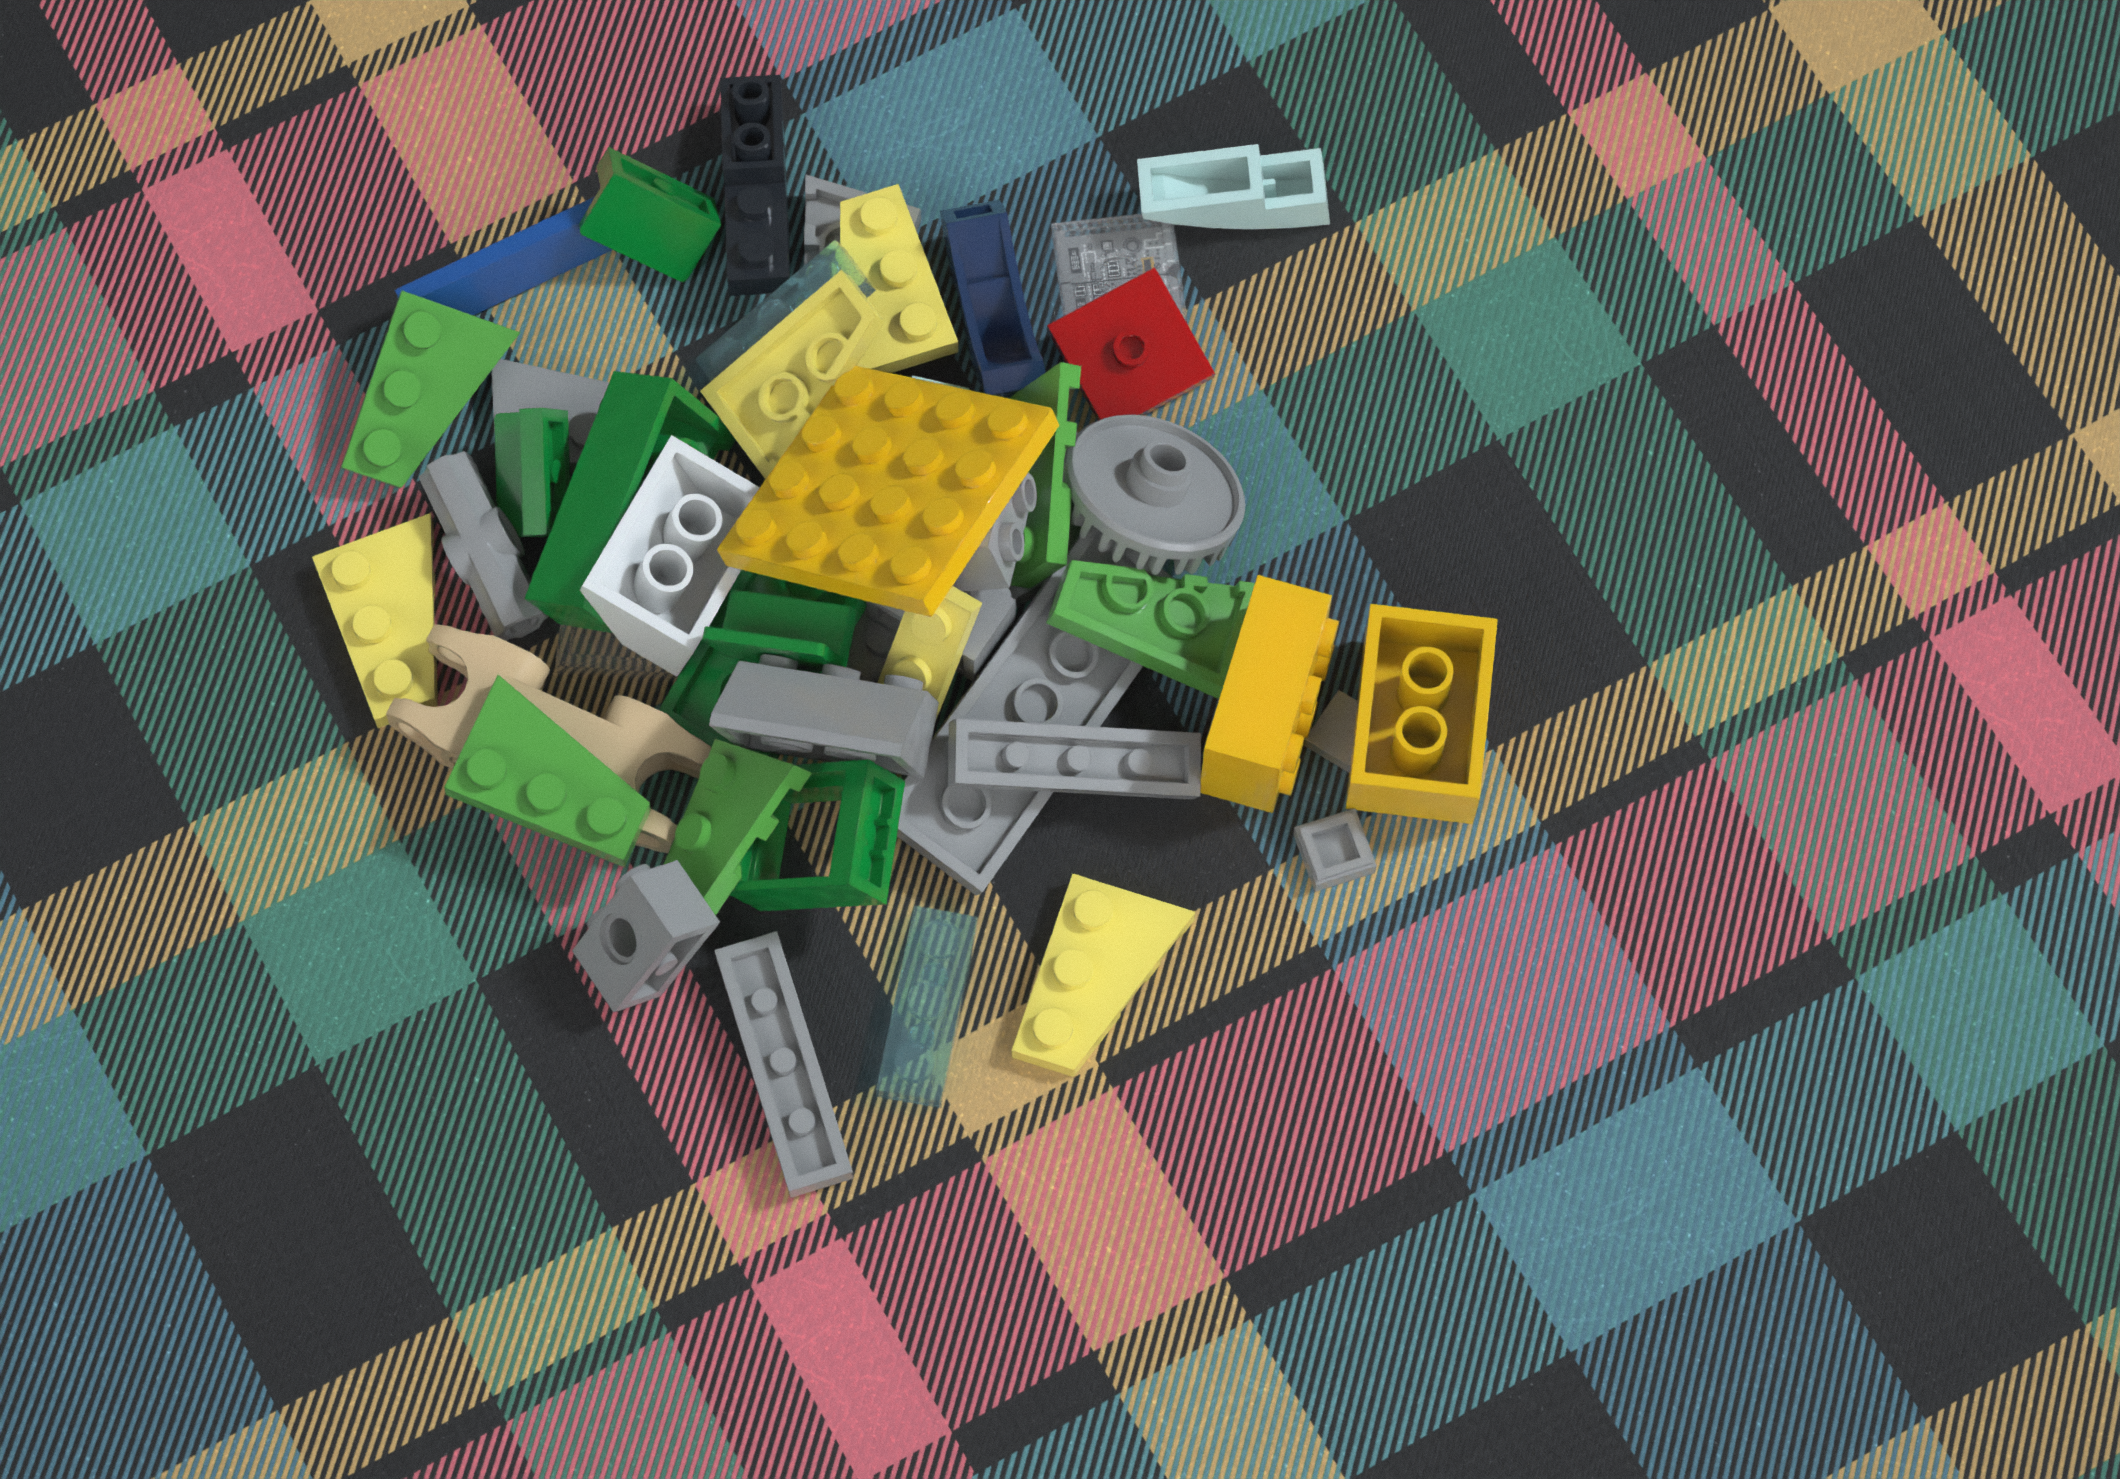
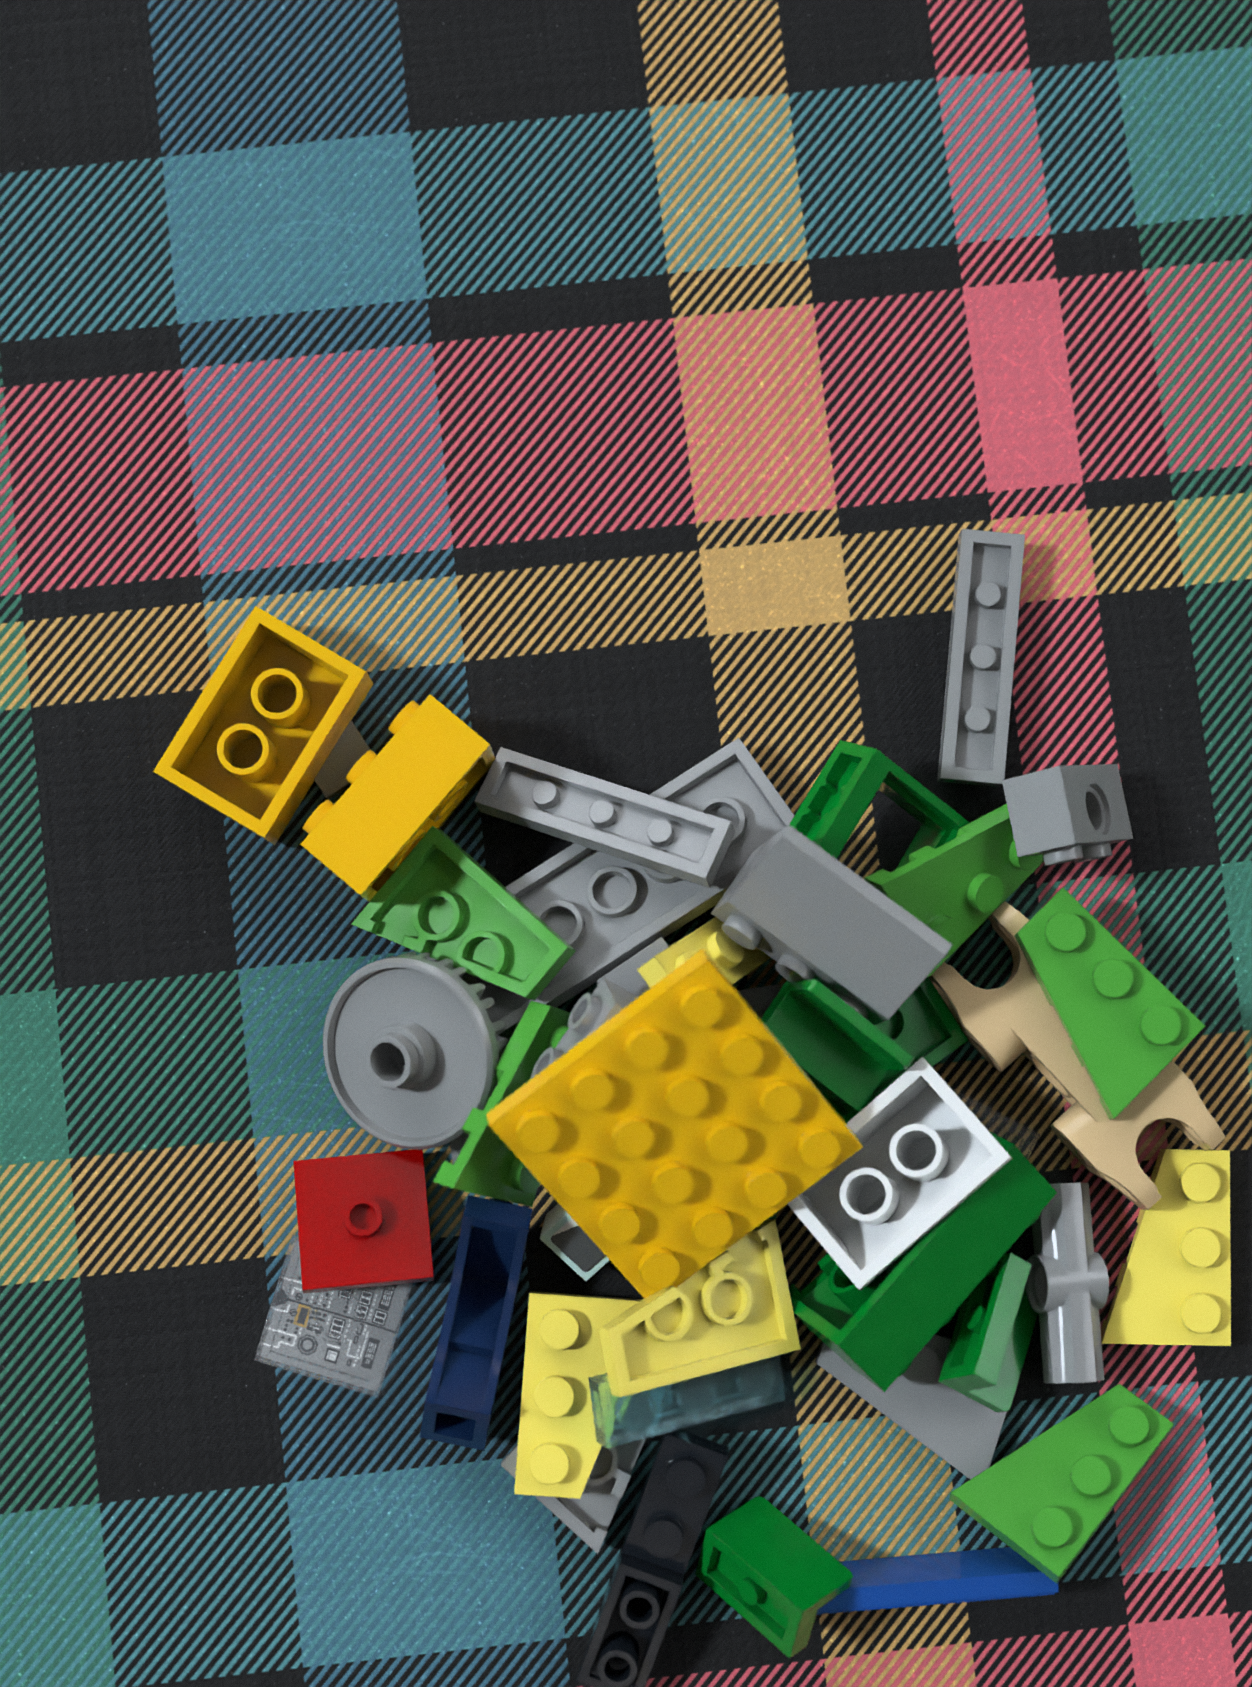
camera: 160 degrees left, 15 degrees up
(927, 1007) = (829, 661): clear light blue plate -> none
(1092, 967) = (668, 631): light yellow wing -> none
(1235, 189) = (183, 1353): light aqua slope -> none
(1334, 850) = (401, 649): light grey tile -> none

